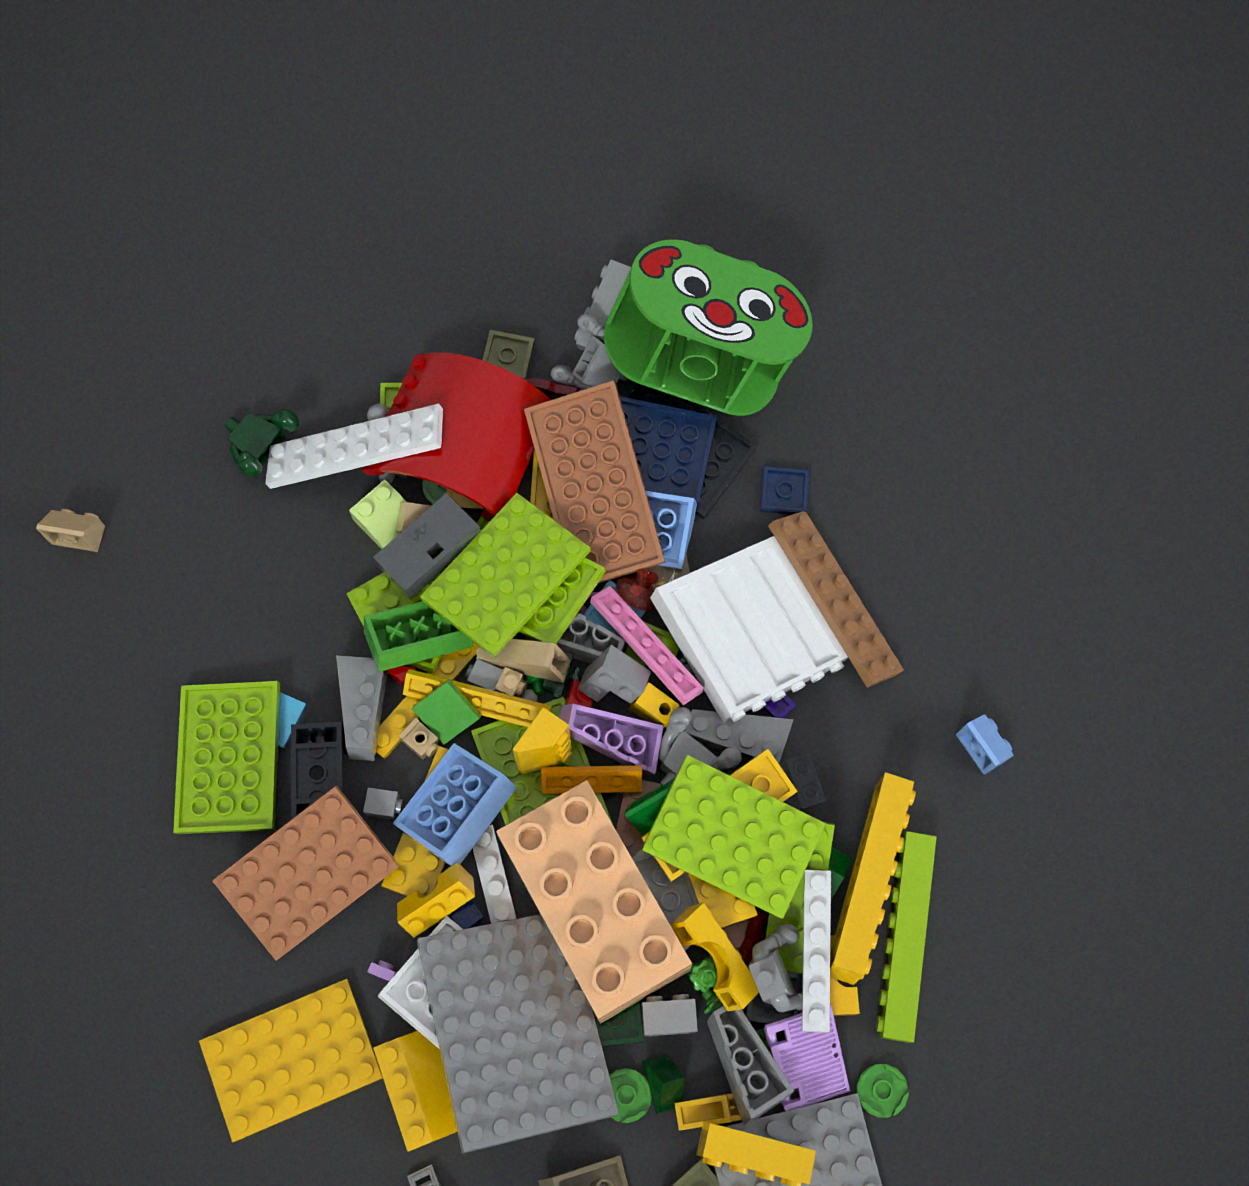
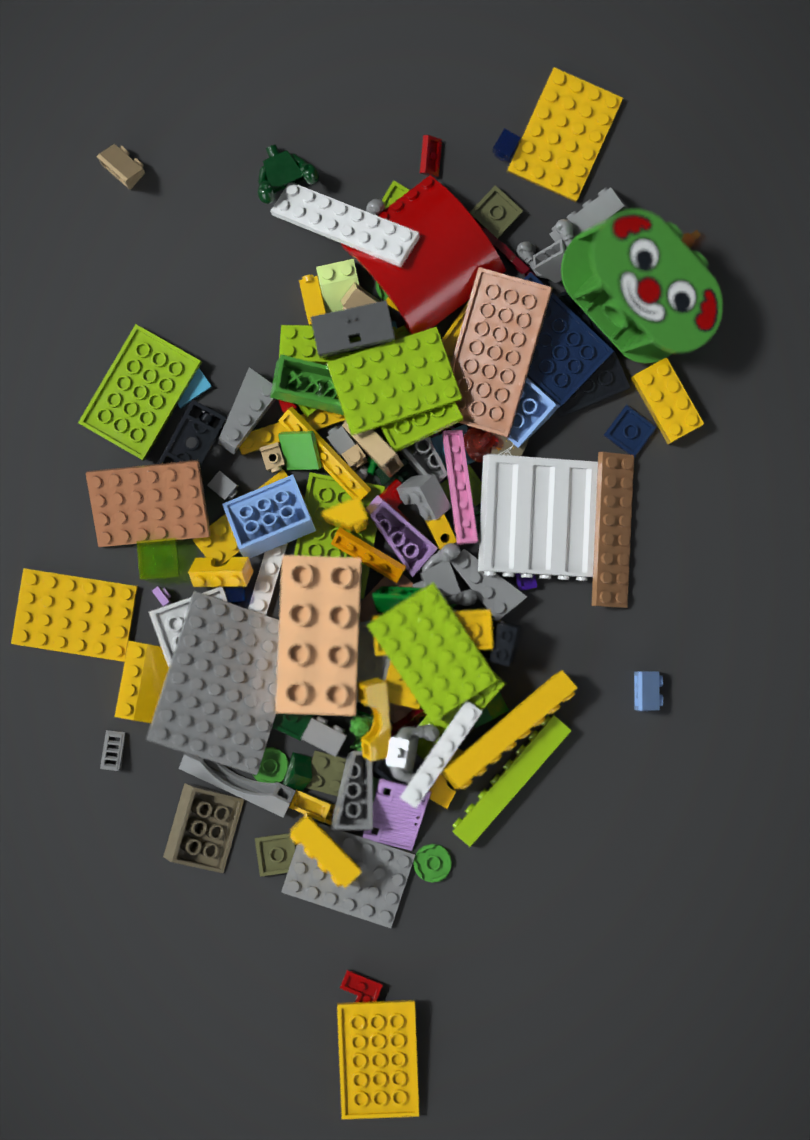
camera: 35 degrees right, 15 degrees up
(353, 930) = (158, 559): none -> clear neon green brick
(361, 545) = (311, 296): none -> yellow brick
(404, 338) = (430, 156): none -> red plate
(477, 286) = (506, 145): none -> clear blue brick
(530, 248) = (564, 134): none -> yellow plate
(649, 1131) = (270, 796): none -> light grey arch
(697, 1060) = (326, 773): none -> olive plate
(803, 436) = (667, 400): none -> yellow brick

